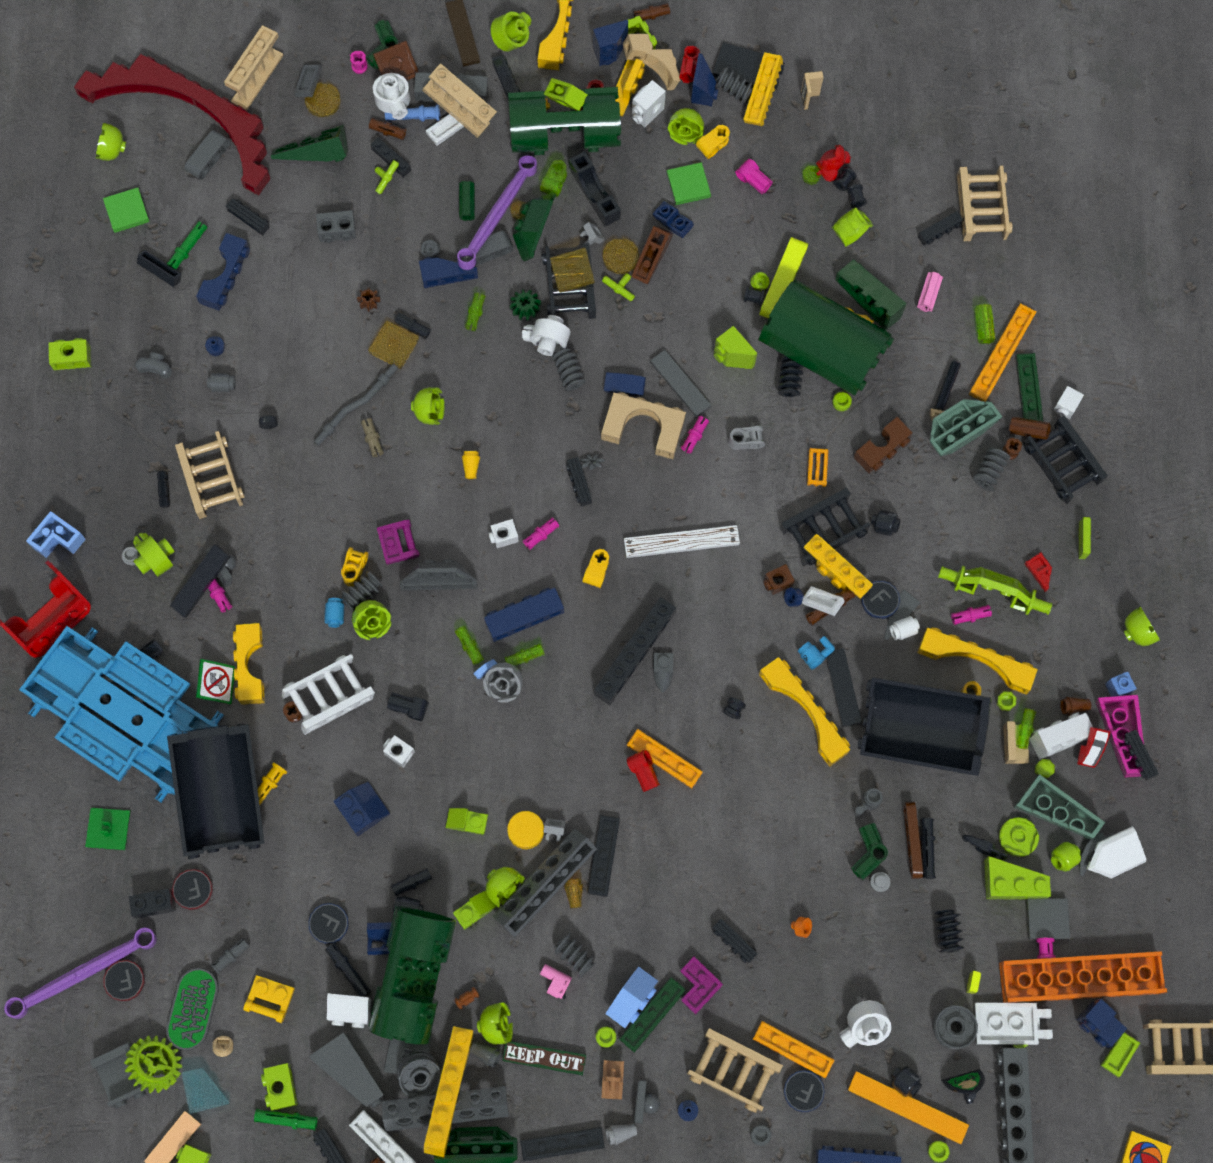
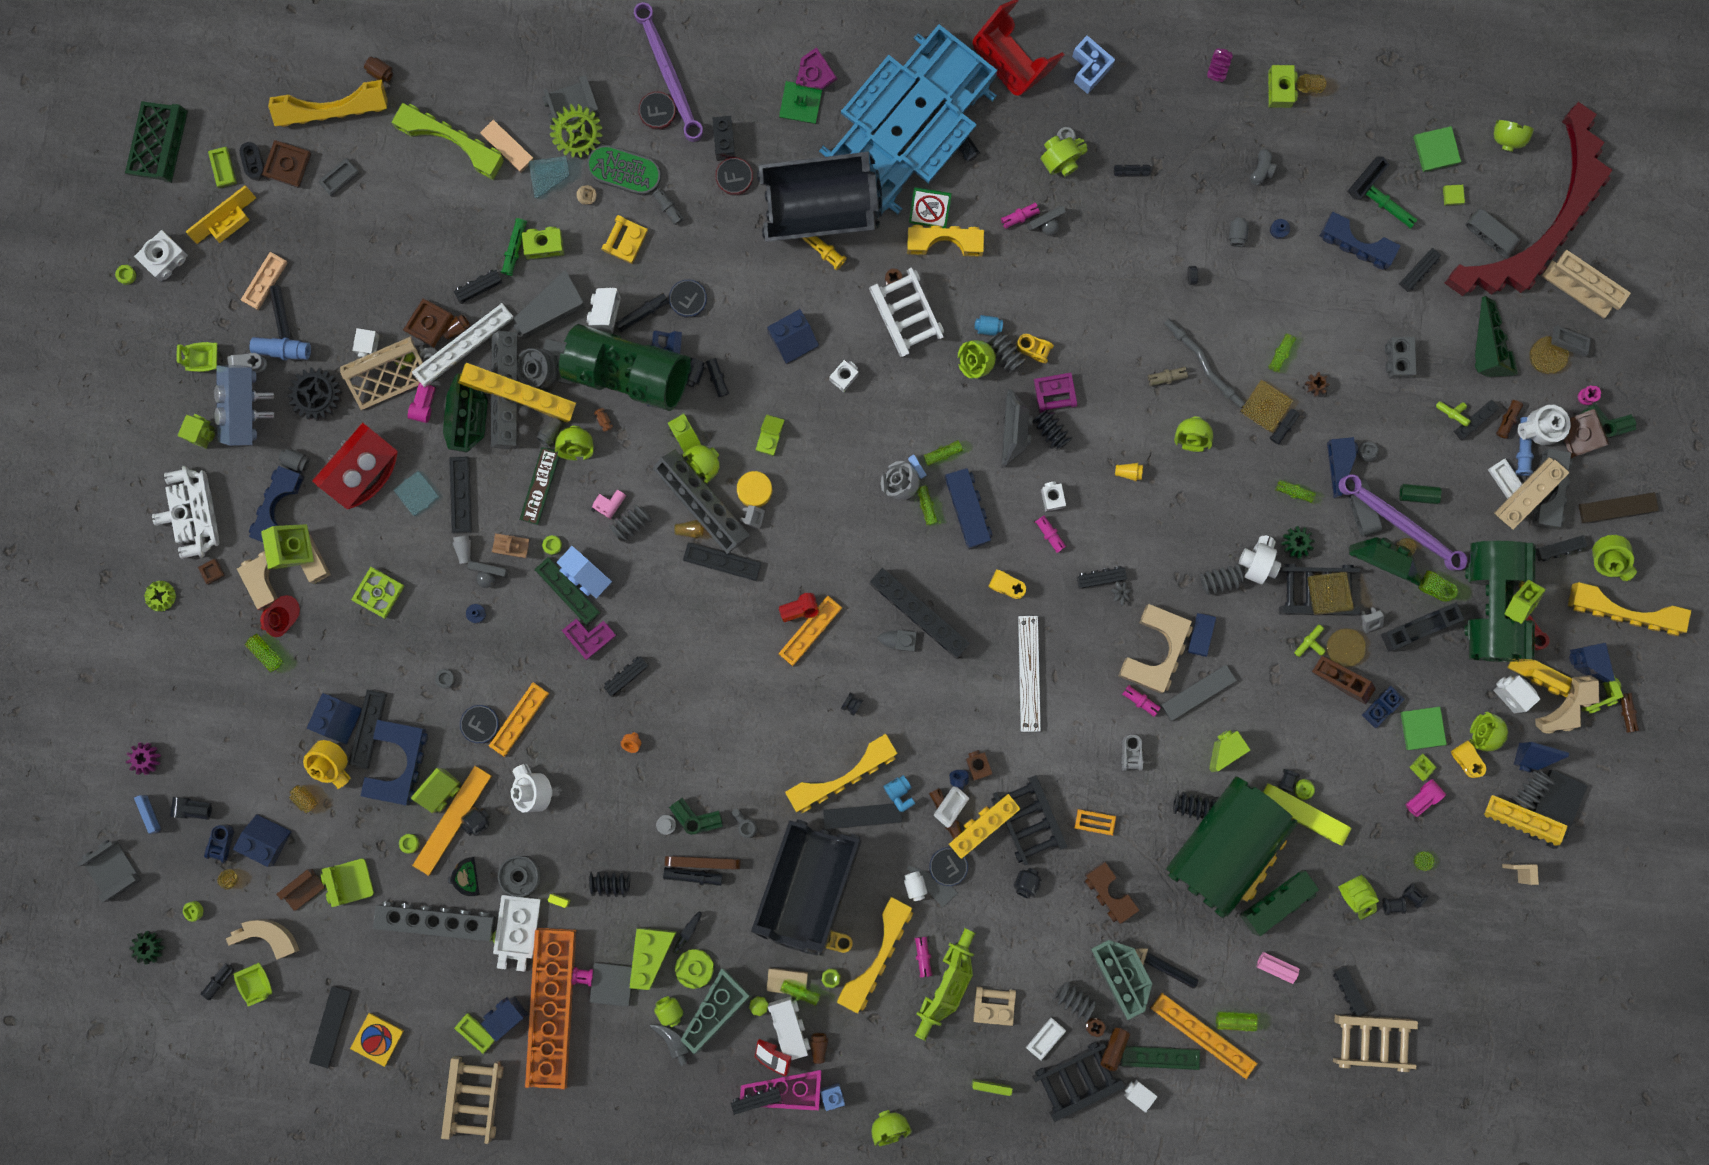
camera: 95 degrees right, 10 degrees up
(50, 412) = (1219, 65): none -> magenta gear
(66, 326) = (1311, 83): none -> clear yellow brick
(74, 815) = (815, 71): none -> magenta plate
(171, 192) = (1453, 195): none -> lime tile
(196, 488) = (1147, 197): tan fence -> none
(200, 580) = (1032, 199): black tile -> none
(339, 334) = (1282, 353): none -> clear neon green pin
(412, 707) = (886, 391): black piece -> none
(436, 539) = (1051, 430): none -> black piece
(689, 64) = (1562, 743): red piece -> none
(725, 181) = (1422, 767): none -> lime tile
(751, 1058) = (515, 677): tan fence -> none
(832, 162) = (1435, 883): red hair -> none
(842, 401) = (1163, 857): lime tile -> none
(880, 1125) = (436, 790): none -> lime slope
(1013, 544) = (991, 1012): none -> tan plate
(1029, 493) = (1045, 1039): none -> white tile
(1040, 570) = (963, 1036): red tile -> none
(1117, 854) = (665, 1063): white tile -> none

